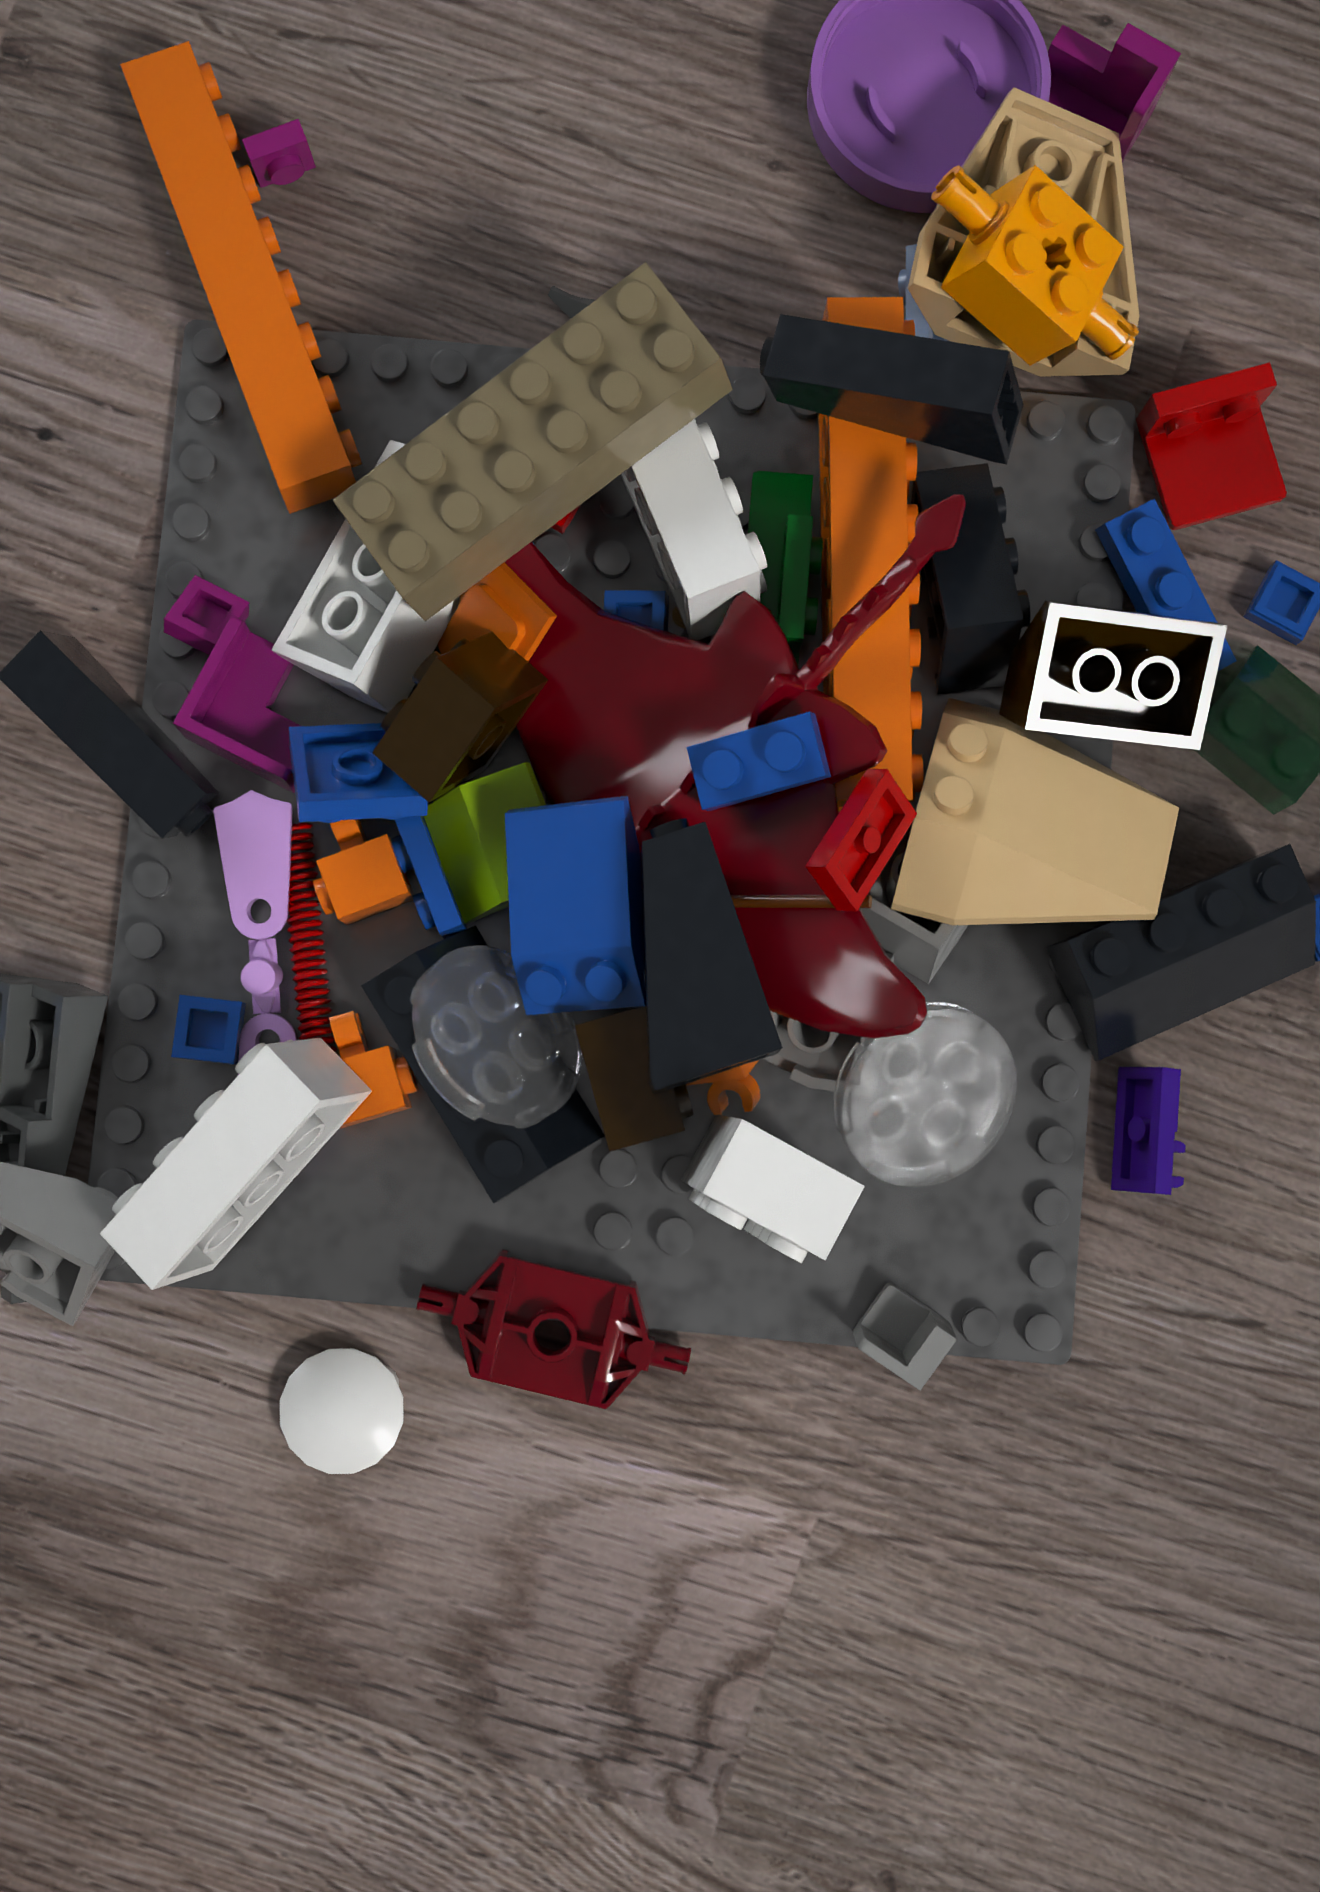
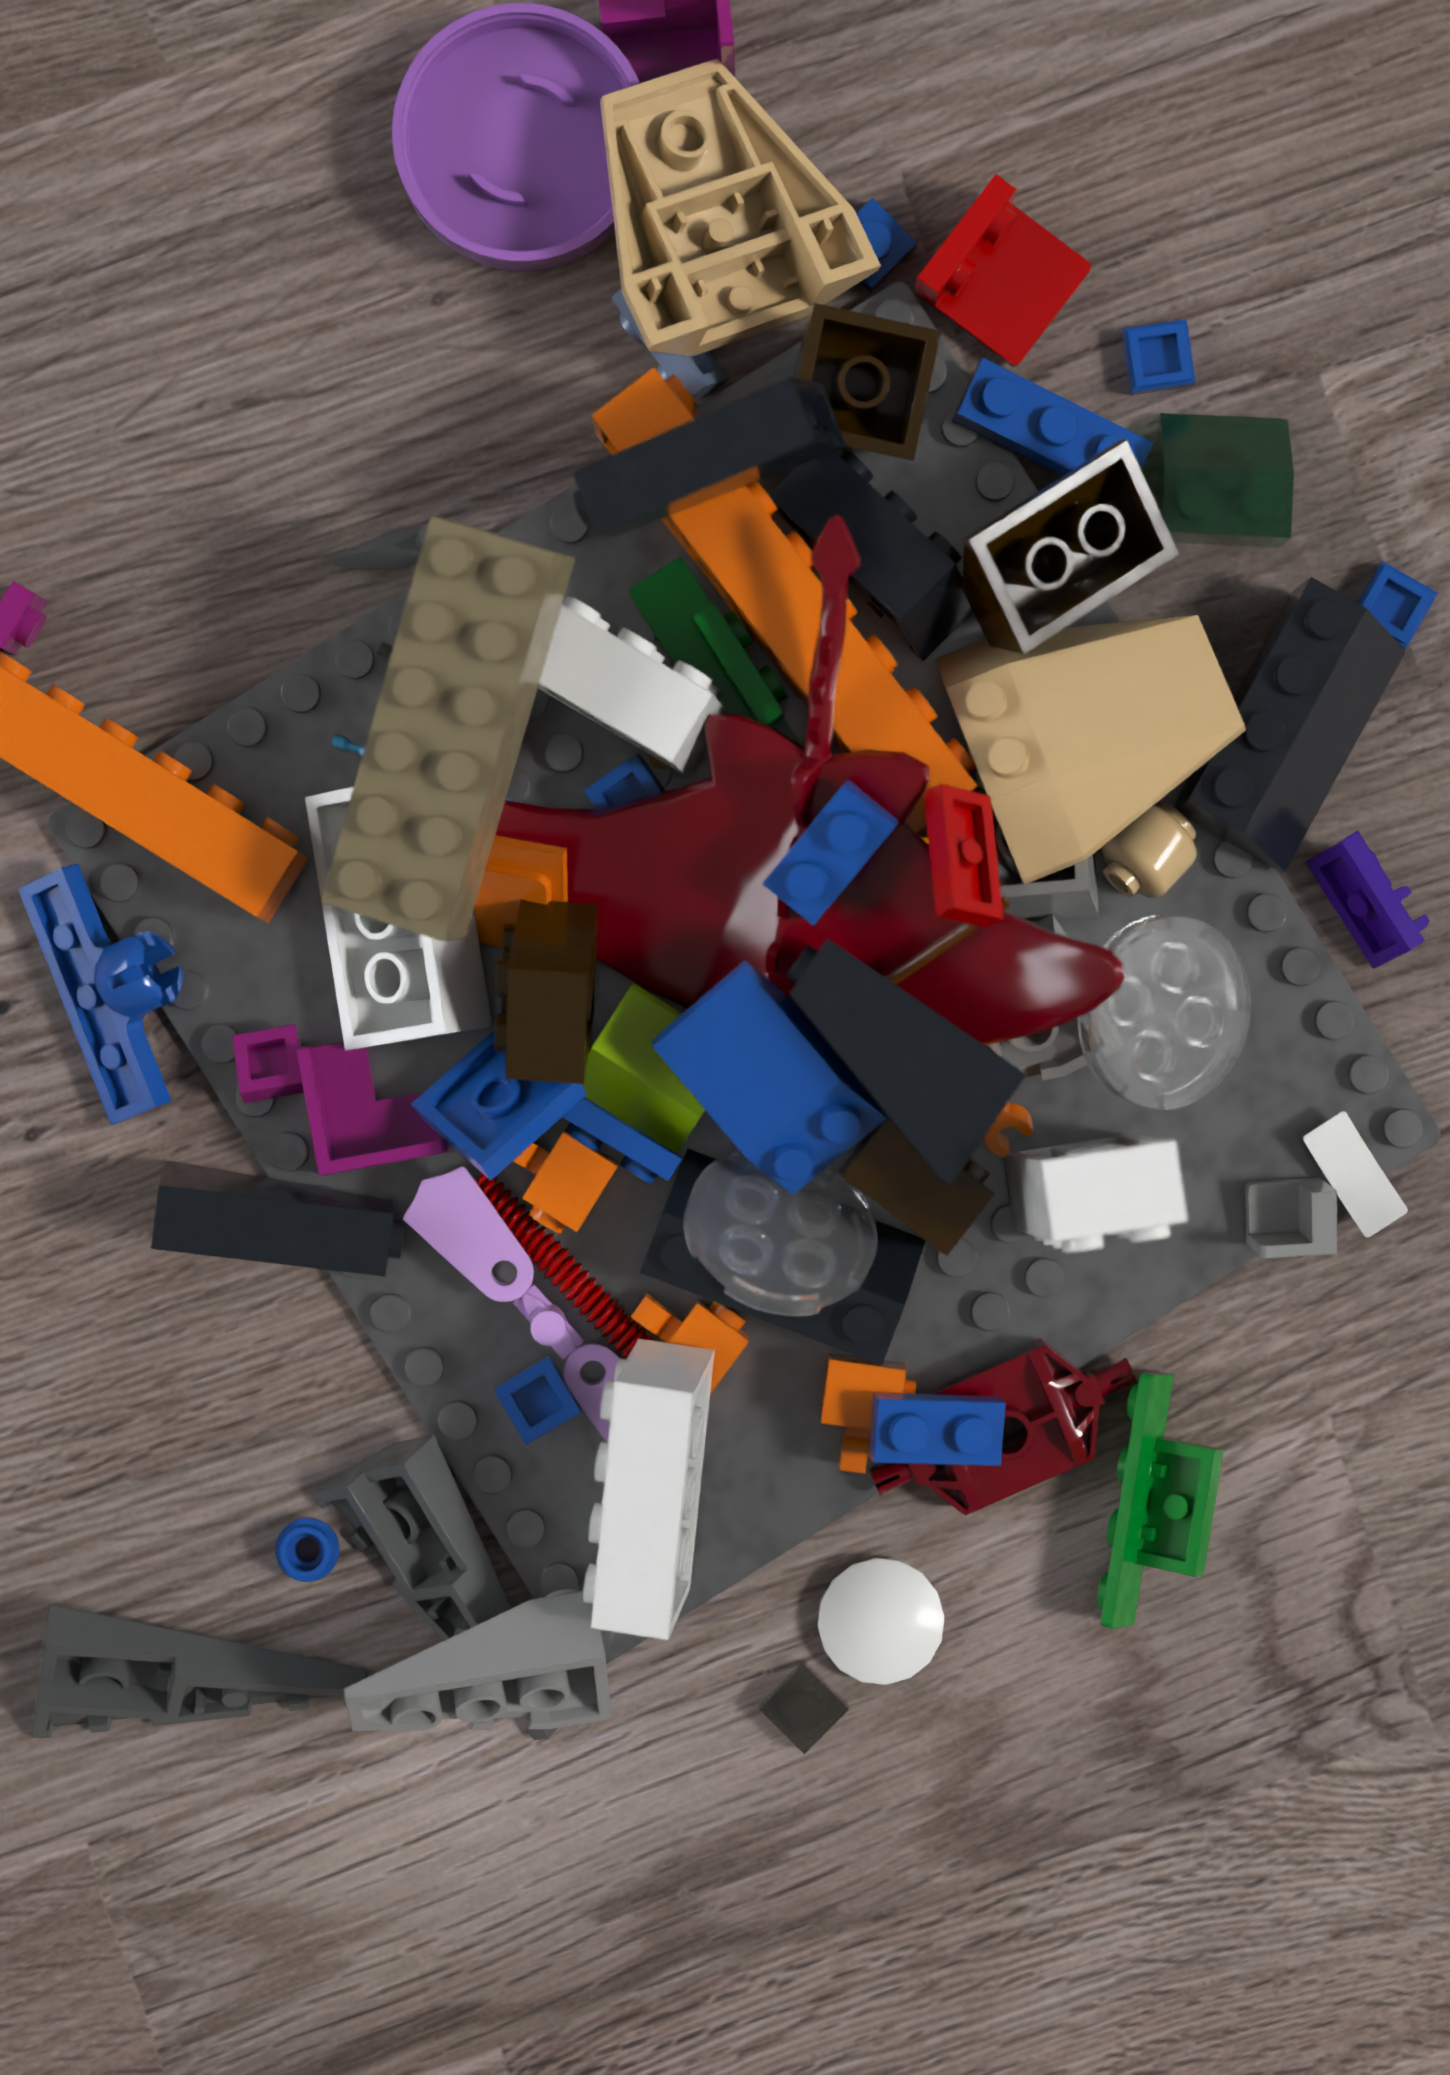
camera: 40 degrees left, 5 degrees up
(128, 472) = (104, 990): none -> blue plate
(229, 1433) = (803, 1707): none -> clear smoke plate
(460, 1223) = (849, 1401): none -> orange brick
(498, 1288) = (937, 1429): none -> blue plate
(632, 1487) = (1162, 1504): none -> green bracket
(980, 1339) = (1354, 1174): none -> white sticker
(1005, 963) = (1150, 852): none -> tan head
(1033, 266) = (740, 252): light orange brick -> none
(1063, 439) = (872, 374): none -> dark brown brick
(1145, 369) = (887, 239): none -> blue plate

